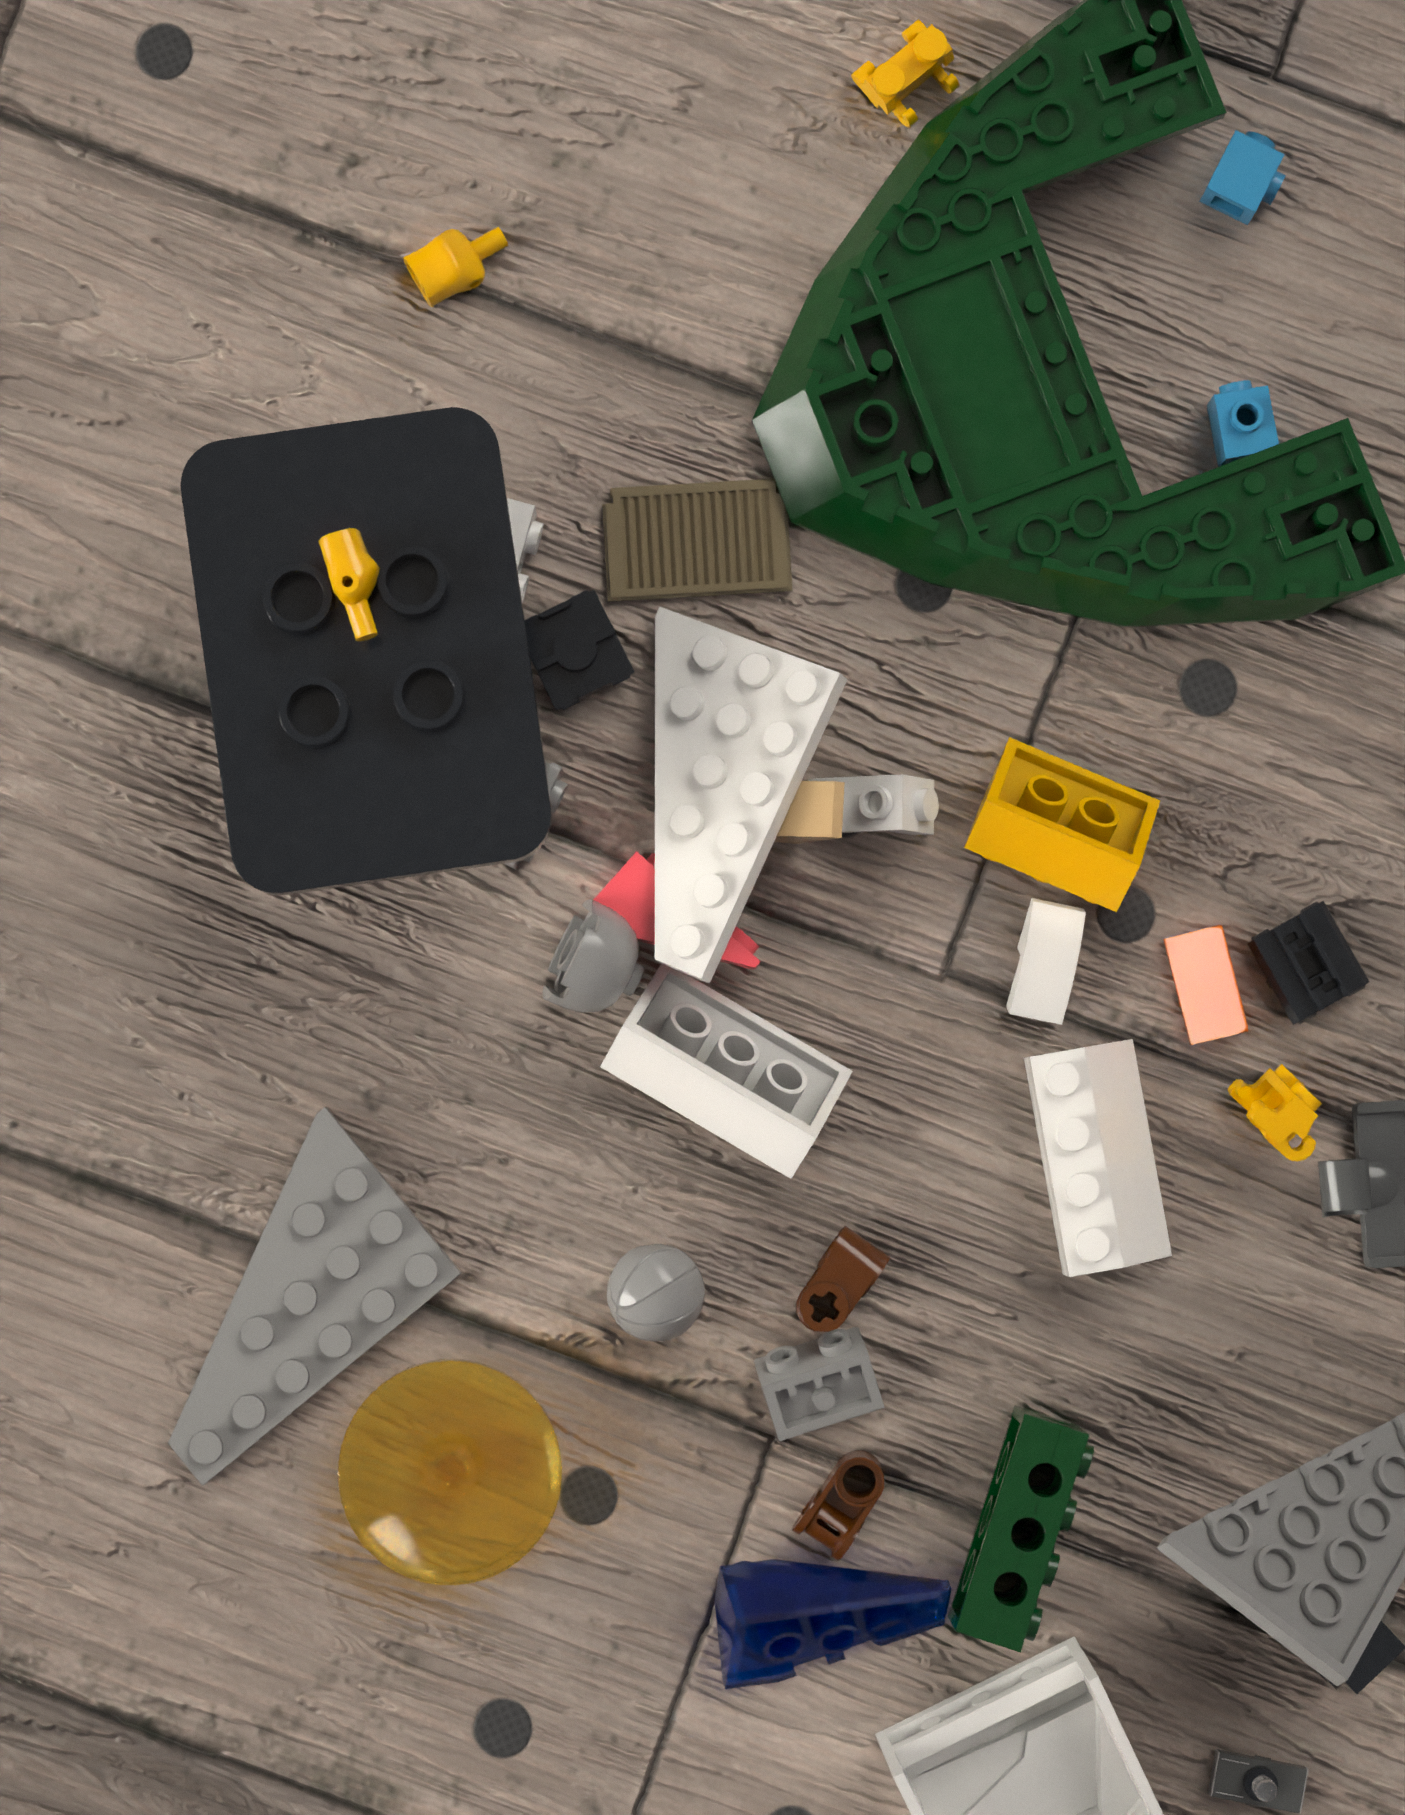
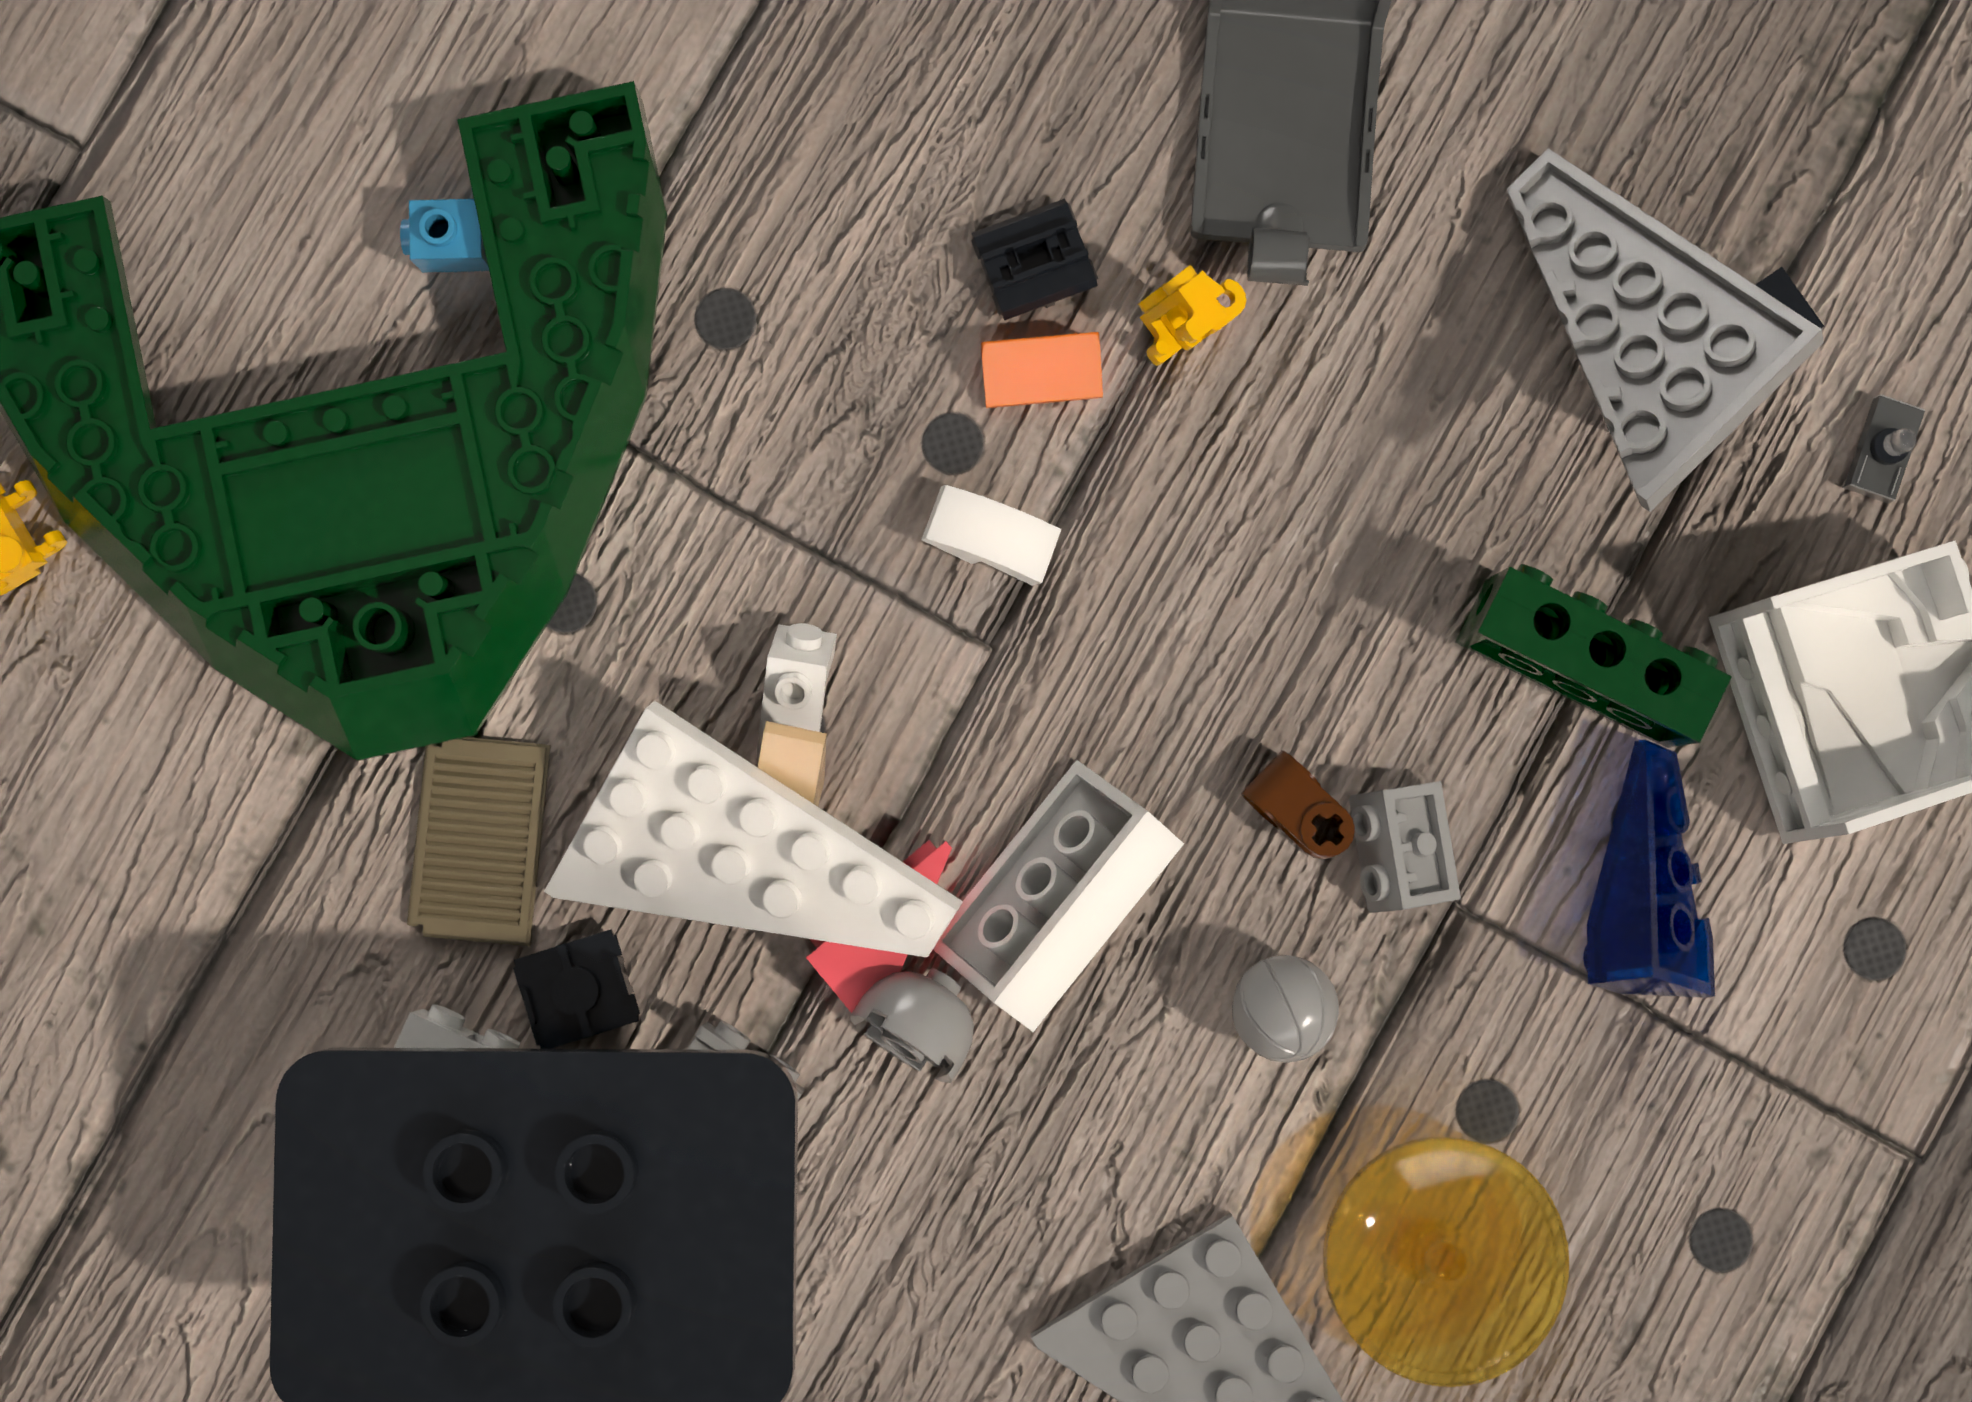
camera: 80 degrees left, 0 degrees up
(352, 577) = (447, 1242): yellow piece -> none
(452, 263) = (130, 1061): yellow piece -> none
(840, 1505) = (1543, 848): reddish brown piece -> none
(1063, 825) = (848, 494): yellow slope -> none
(1097, 1158) = (1209, 513): white slope -> none
(1244, 176) = (181, 190): dark azure brick -> none

